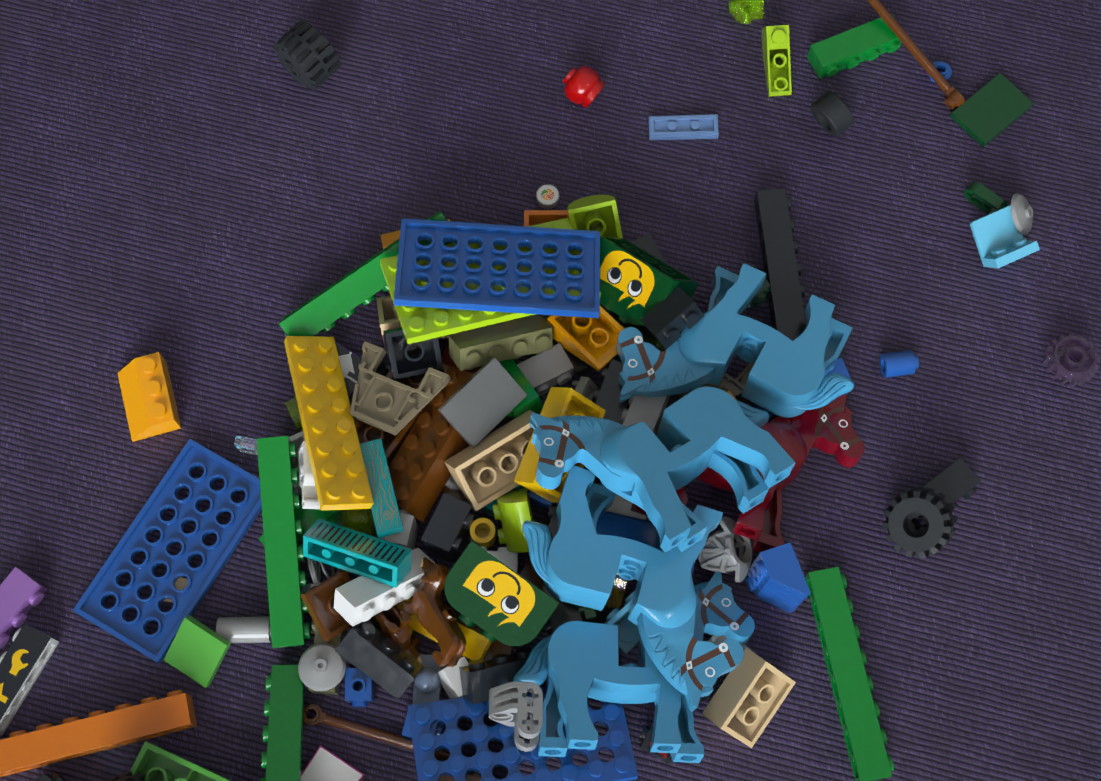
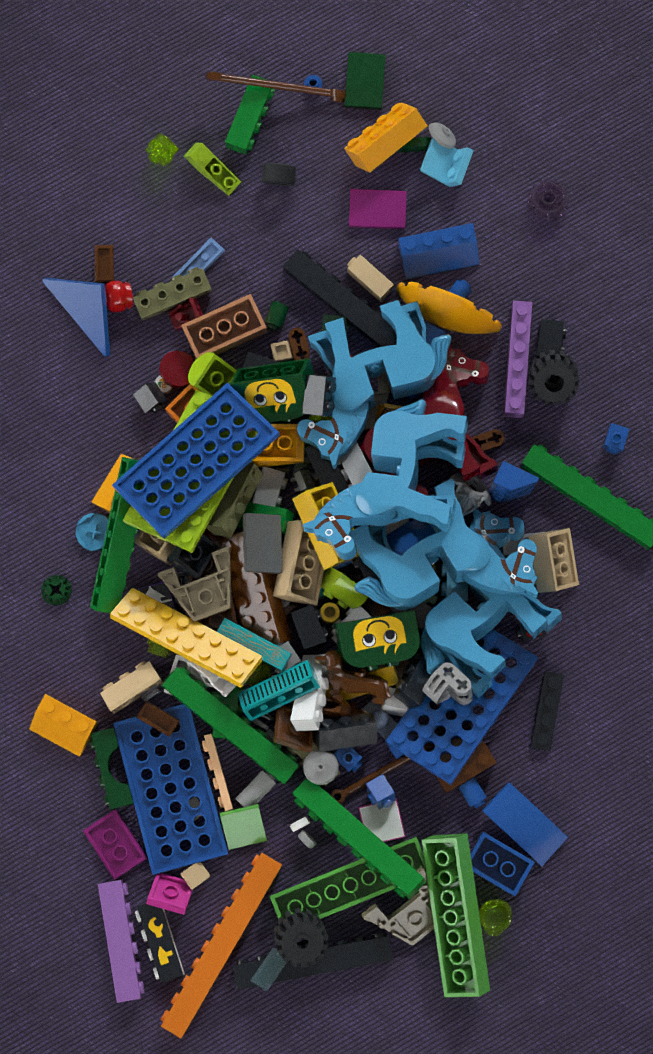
camera: 45 degrees left, 10 degrees up
(67, 644) = (169, 893): none -> dark pink tile
(74, 549) = (115, 844): none -> magenta tile
(107, 651) = (195, 875): none -> tan slope
(158, 453) = (105, 744): none -> dark green arch
(224, 586) = (214, 764): none -> light nougat plate
(227, 420) = (130, 686): none -> tan slope
(230, 473) = (158, 719): none -> reddish brown tile
(241, 725) = (307, 839): none -> light grey tile
(251, 703) = (300, 823): none -> white tile
(278, 284) = (56, 599): none -> dark green gear
(351, 256) = (92, 531): none -> dark azure tile
(353, 752) = (380, 792): none -> brick
(522, 193) = (150, 398): none -> brick
(548, 69) = (86, 306): none -> tile
(568, 188) = (175, 368): none -> dark red tile
(602, 53) = (104, 263): none -> reddish brown tile
(628, 157) = (184, 313): none -> dark red hand
(633, 127) = (171, 294): none -> olive brick
(651, 195) = (225, 327): none -> nougat brick
(683, 262) = (281, 351): none -> tan tile
(707, 229) = (276, 316): none -> dark green brick
(707, 276) = (303, 343): none -> reddish brown beam
(799, 518) = (488, 435): none -> reddish brown beam
(828, 273) = (369, 277): none -> tan brick
(877, 368) = (448, 309): none -> light orange brick
(895, 225) = (377, 209): none -> magenta tile
(899, 474) = (517, 359): none -> medium lavender brick
(918, 310) = (439, 251): none -> blue slope
(926, 641) = (615, 439): none -> blue brick
(965, 165) = (385, 136): none -> light orange brick

